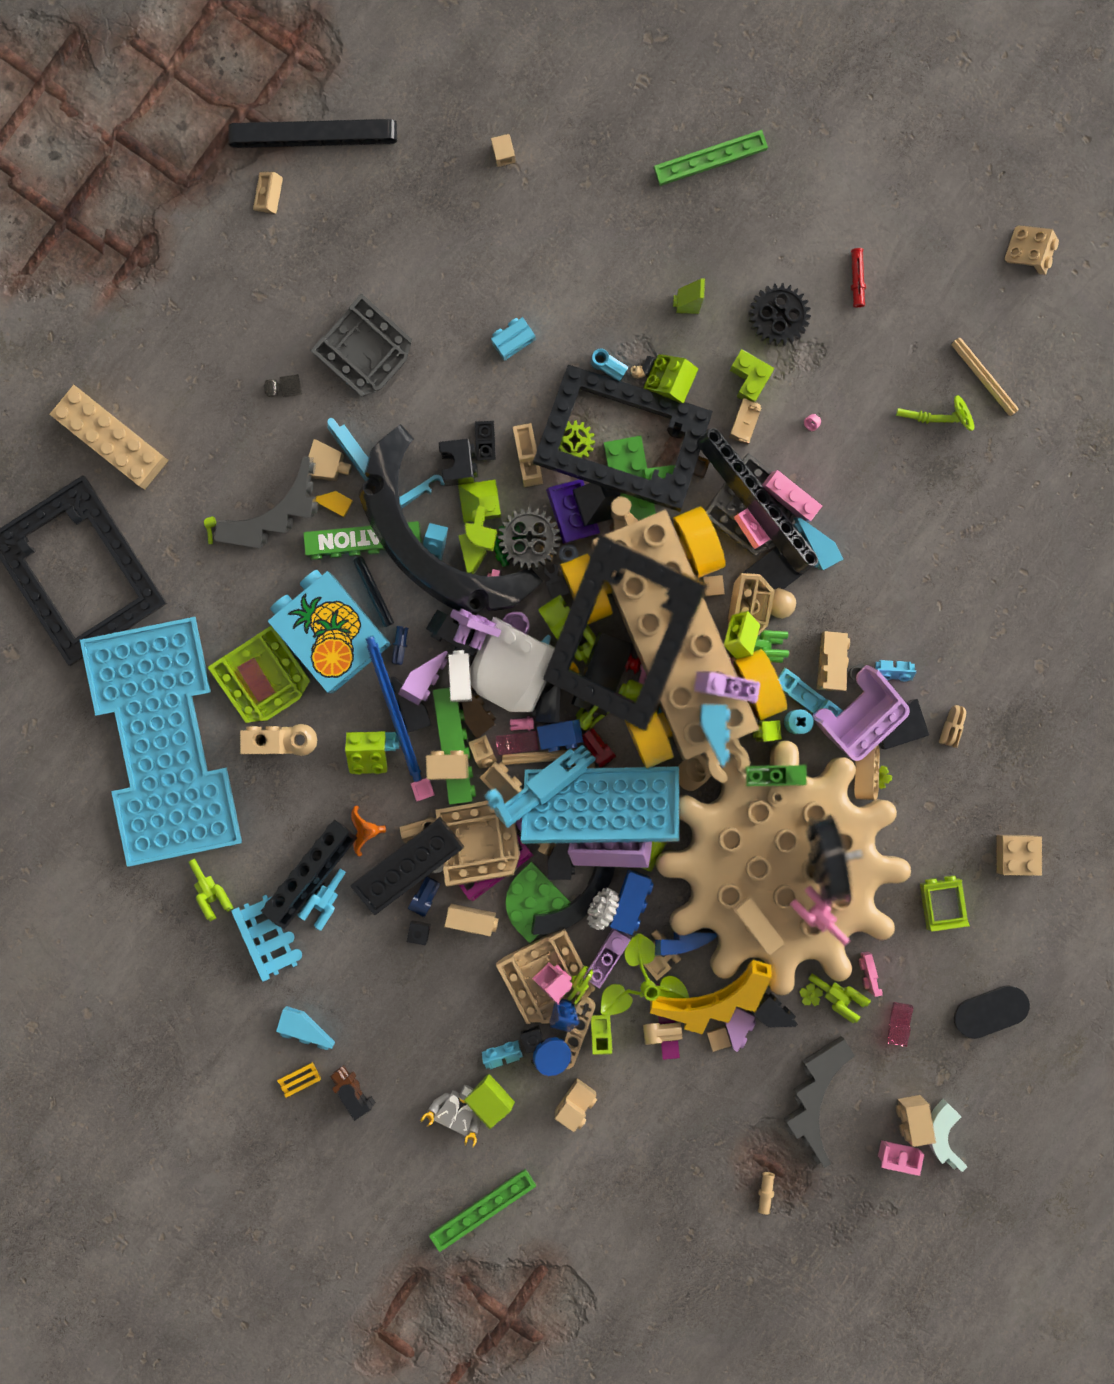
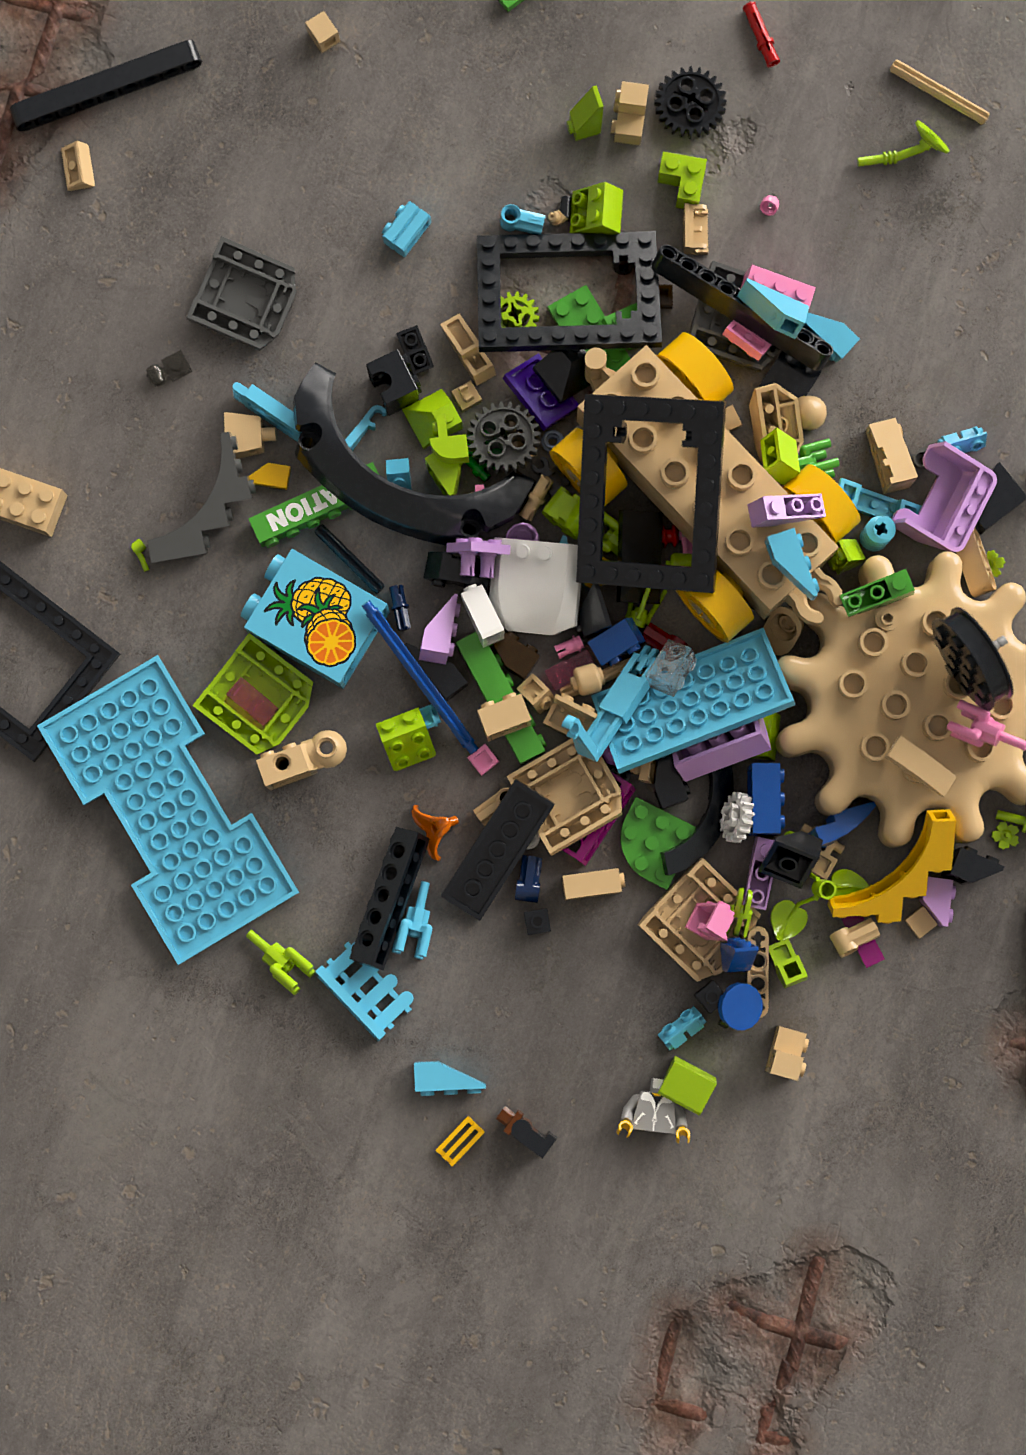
camera: 15 degrees left, 5 degrees down
(482, 1210) = (724, 1215): bright green plate -> none
(513, 492) = (466, 396): none -> tan tile
(525, 757) = (587, 679): none -> tan head
(538, 595) = (536, 497): none -> tan pin
(594, 773) = (671, 668): none -> clear brick
(634, 958) = (792, 858): none -> black slope
(730, 300) = (630, 106): none -> tan brick
(783, 514) = (774, 308): none -> medium azure slope

